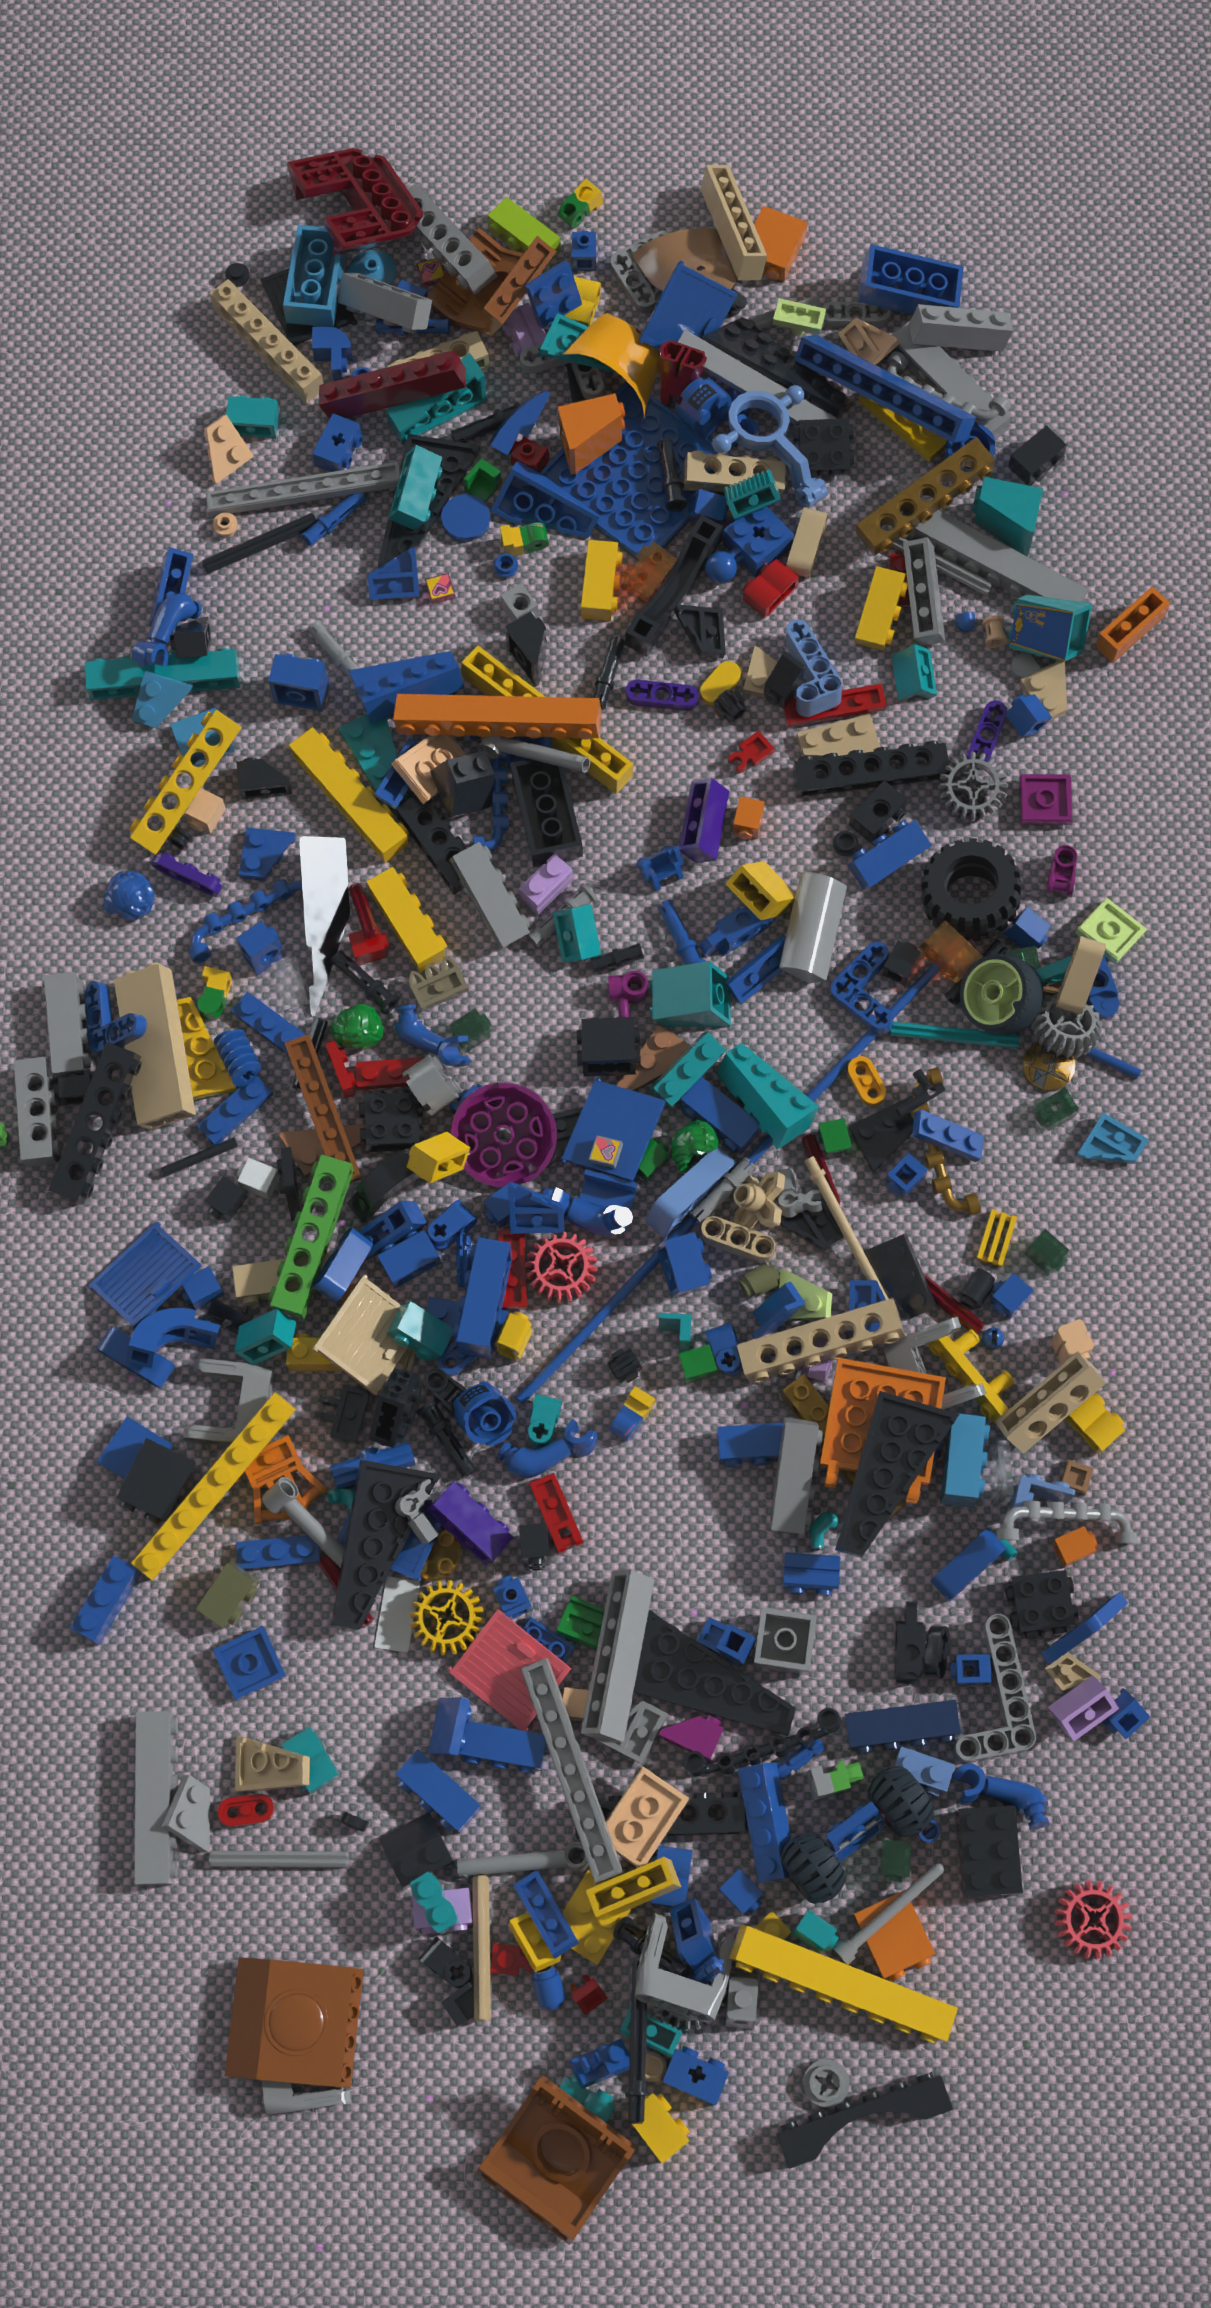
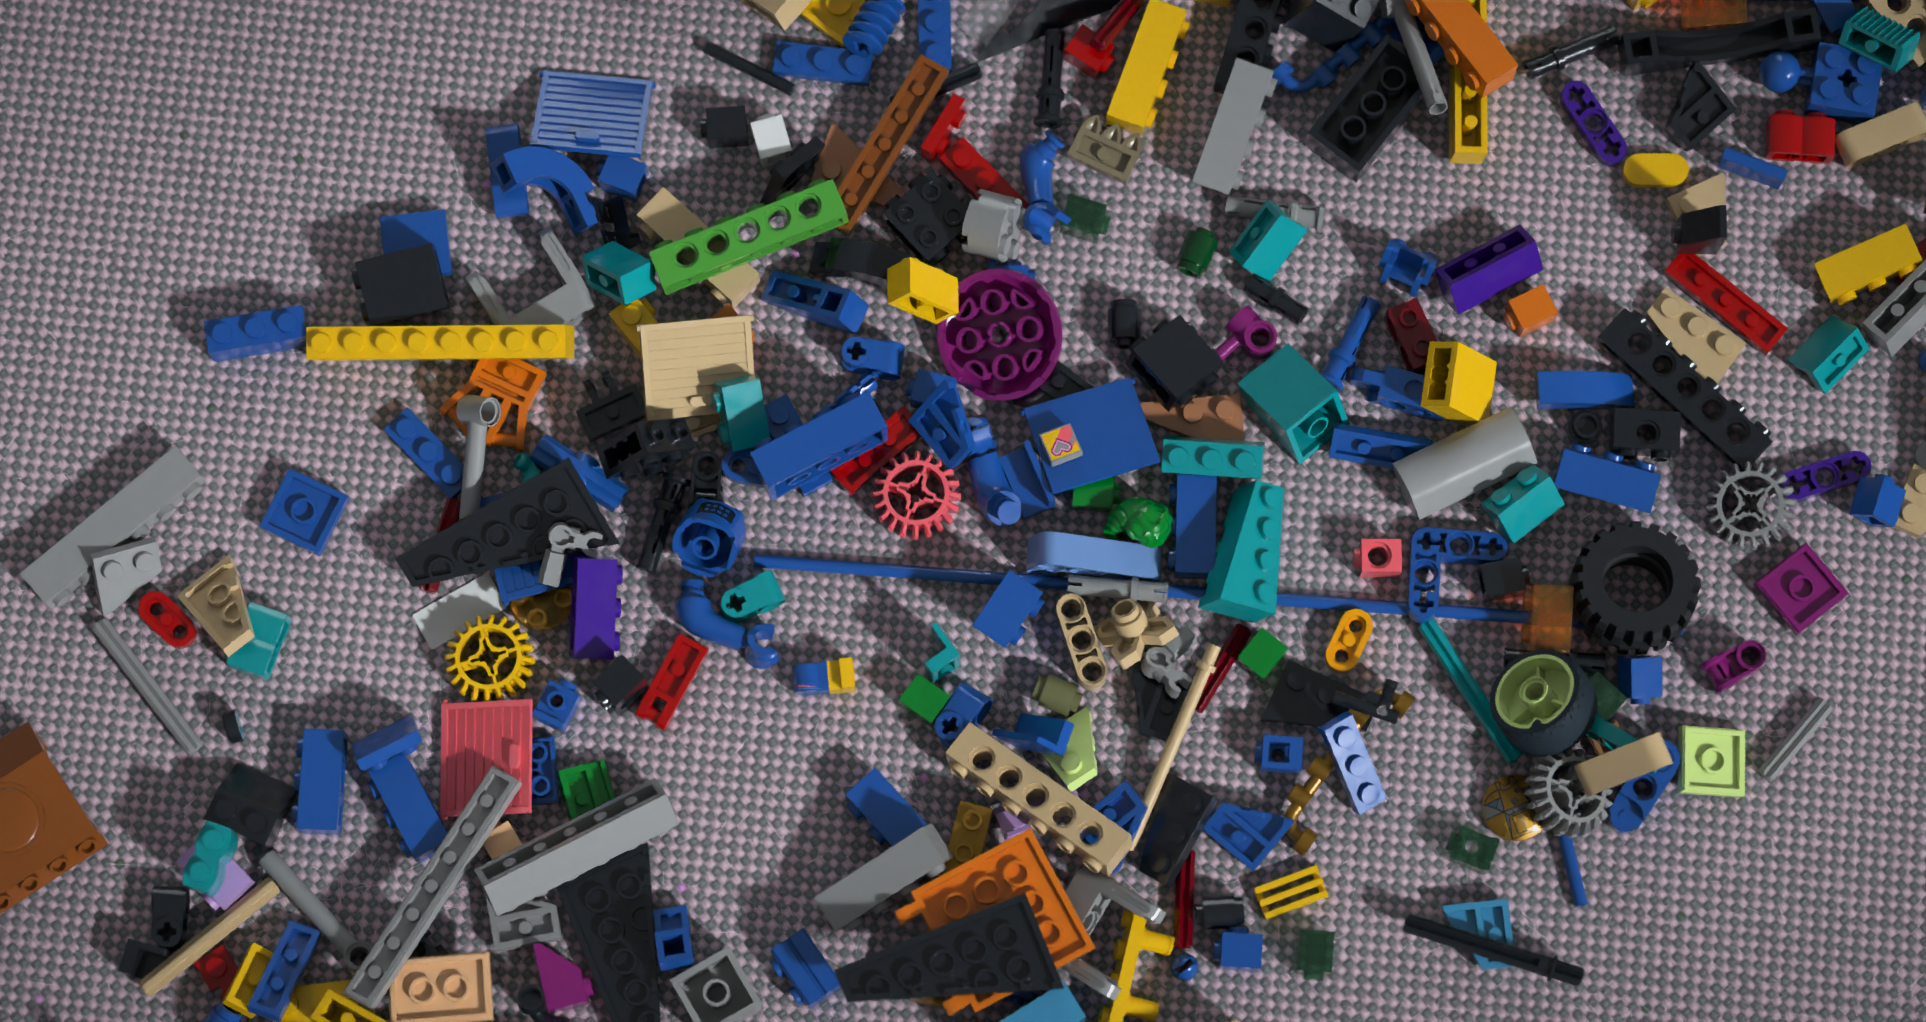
camera: 50 degrees right, 5 degrees up
(228, 1595) = (350, 441): olive brick -> none
(342, 1265) = (745, 287): beam -> none
(357, 1027) = (997, 110): green hair -> none
(408, 1258) = (807, 344): blue brick -> none
(514, 1336) = (809, 503): yellow brick -> none
(546, 884) = (1294, 170): lavender brick -> none
(548, 981) = (1196, 252): none -> dark green brick
(557, 1058) = (1124, 323): none -> black brick
(624, 1365) = (866, 632): black gear -> none
(707, 896) = (1410, 334): none -> dark red brick
(730, 705) = (1636, 198): black gear -> none
(753, 750) = (1610, 259): red plate -> none
(766, 628) = (1752, 168): none -> blue tile
(819, 1527) = (857, 942): teal arm -> none
(822, 827) = (1583, 390): none -> blue slope
(823, 683) = (1747, 243): medium blue beam -> none
(835, 1014) = (1389, 548): none -> coral brick
(865, 913) = (1523, 503): none -> teal brick
(939, 1232) = (1247, 831): none -> blue wing
(1134, 874) = (1795, 739): none -> light grey axle
(1161, 1123) = (1494, 950): none -> black axle

